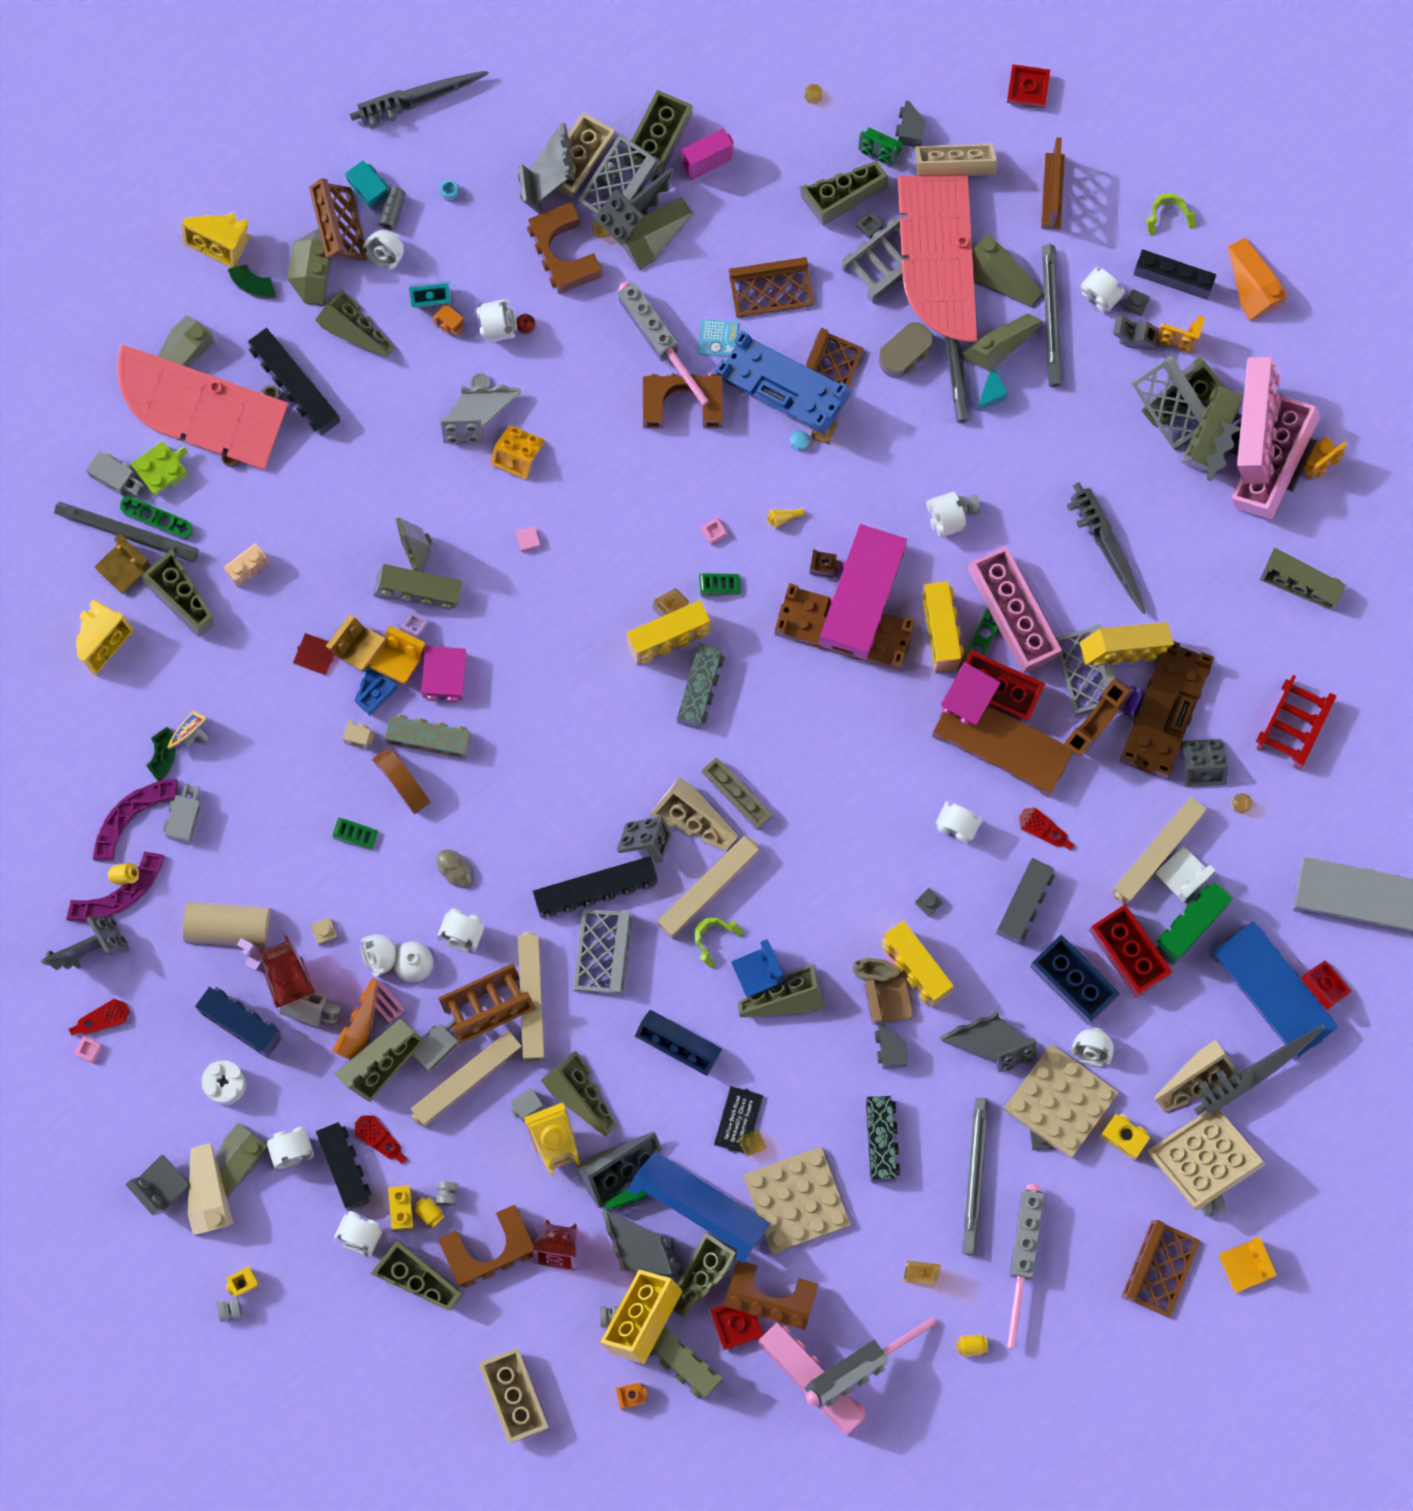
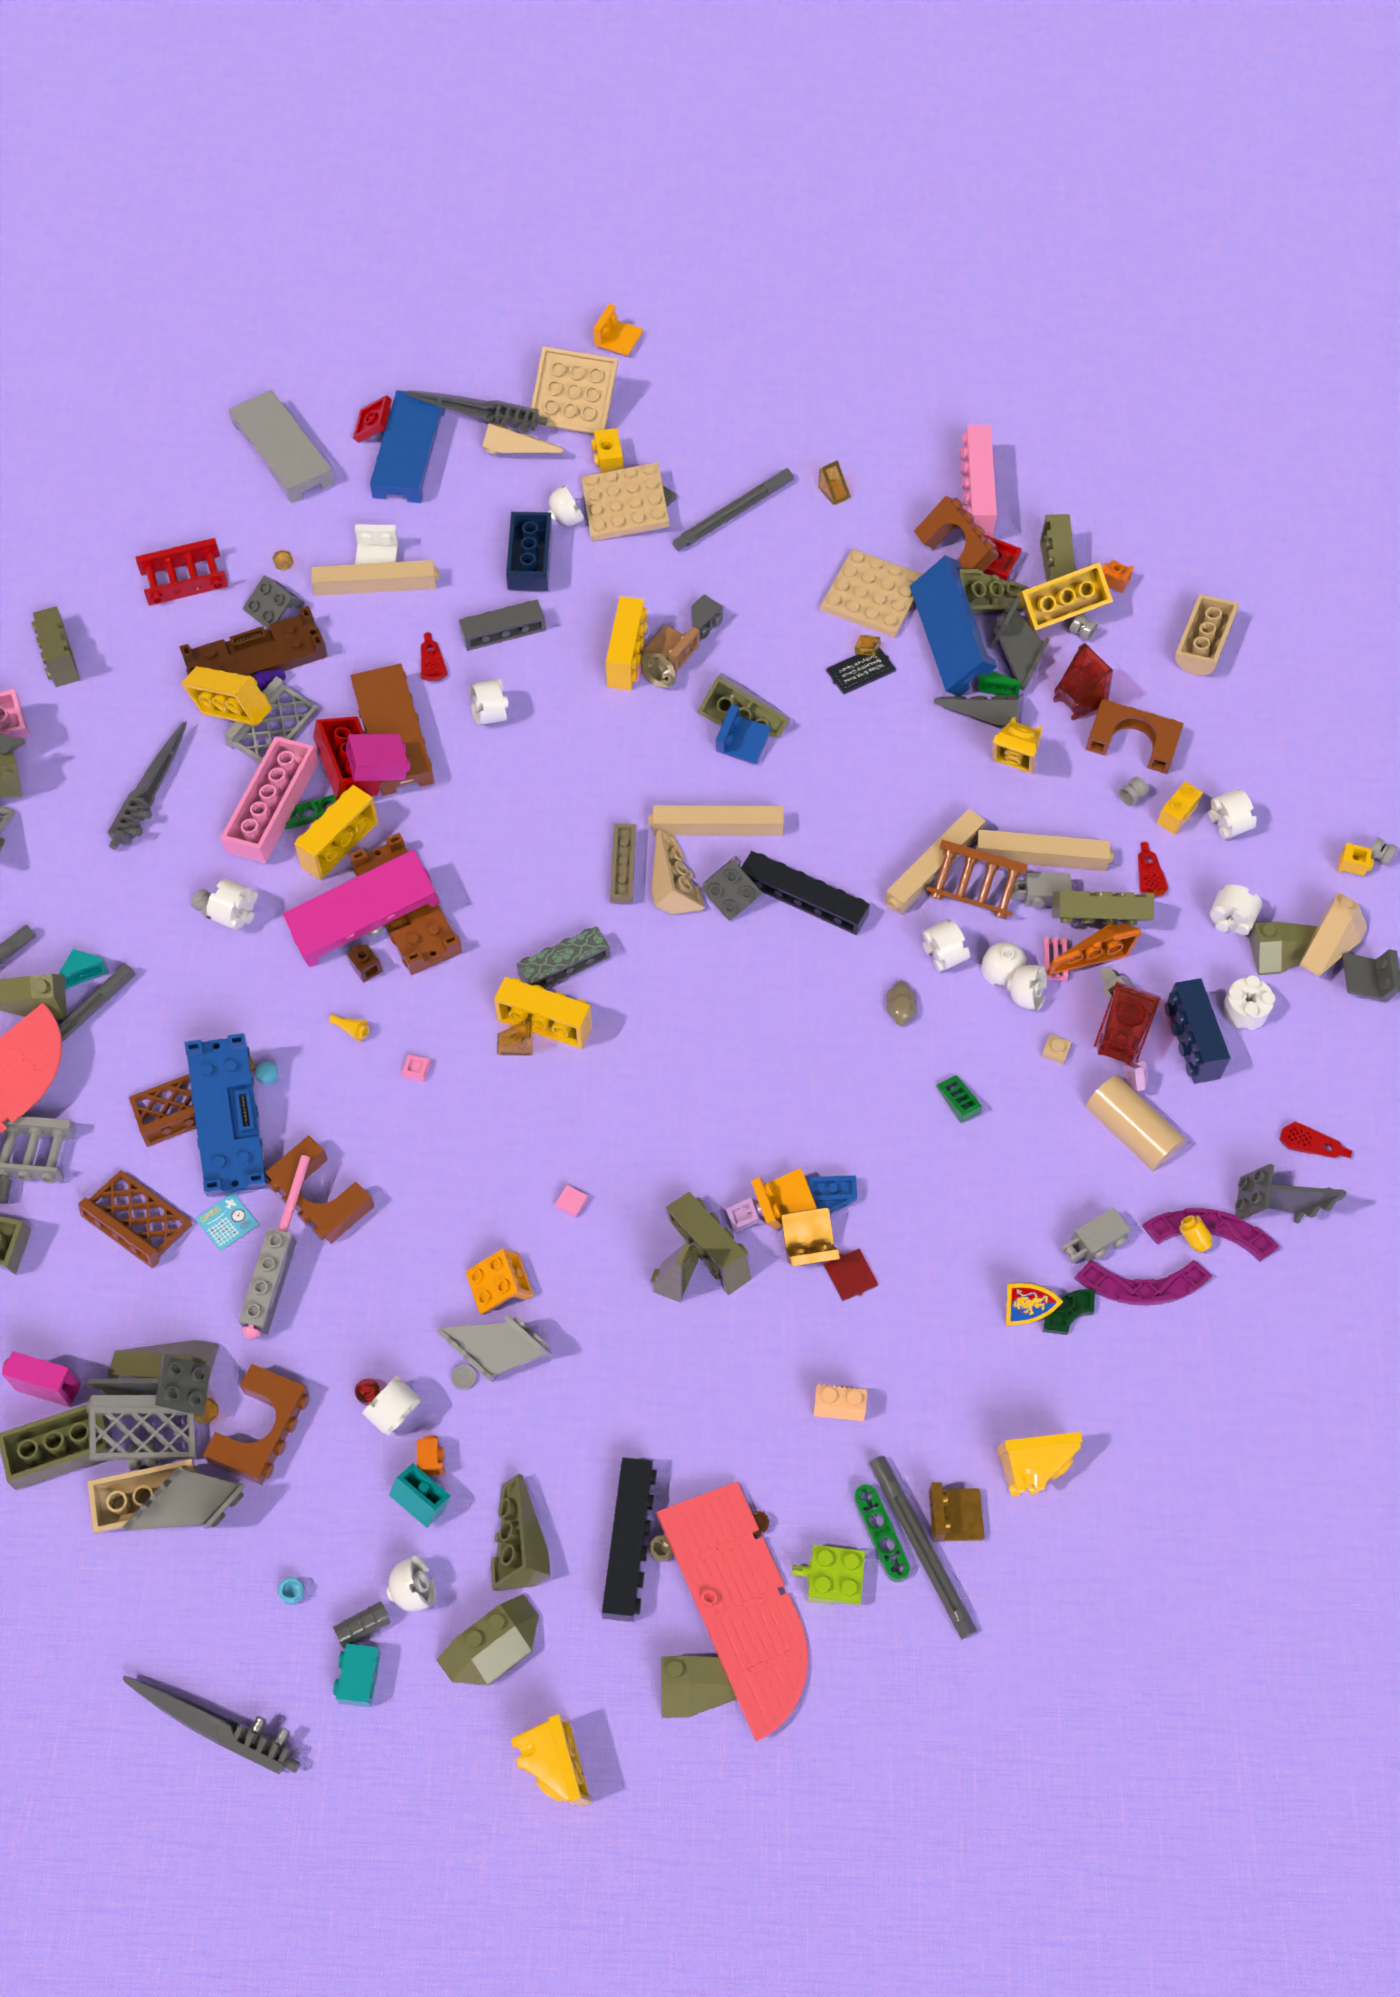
camera: 135 degrees left, 15 degrees down
(88, 1049) = (1345, 1129): bright pink tile -> none
(114, 474) = (885, 1612): light grey brick -> none
(177, 592) = (926, 1441): olive wedge -> none
(250, 283) = (568, 1685): dark green tile -> none
(329, 223) = (429, 1667): dark orange fence -> none
(343, 1166) = (1200, 871): black brick -> none
(358, 735) = (881, 1168): tan brick -> none
(402, 780) = (880, 1102): dark orange arch -> none
(412, 1273) = (1209, 754): olive wedge -> none
(428, 737) = (822, 1115): dark tan brick -> none
(429, 1211) = (1158, 791): yellow brick -> none
(444, 673) = (758, 1152): dark pink brick -> none
(526, 1104) = (1012, 796): light grey brick -> none
(574, 1087) = (964, 776): olive wedge -> none
(620, 948) = (837, 830): light grey fence -> none
(678, 1042) = (854, 740): dark blue brick -> none
(702, 928) = (770, 779): lime helmet -> none
(703, 577) = (467, 1037): green slope -> none
(856, 1369) = (947, 450): piece -> none
(881, 1139) = (773, 575): black brick -> none
(905, 350) = (101, 1060): dark tan brick -> none
(929, 902) = (568, 682): dark grey plate -> none
(972, 1345) = (846, 428): yellow brick -> none
(993, 1040) = (627, 562): dark grey piece -> none
(1024, 1250) = (748, 446): light grey piece -> none
(1089, 731) = (328, 680): dark orange arch -> none
(1130, 951) = (471, 536): red brick -> none
(1143, 1263) = (680, 383): dark orange fence -> none
(1197, 918) = (412, 512): green brick -> none

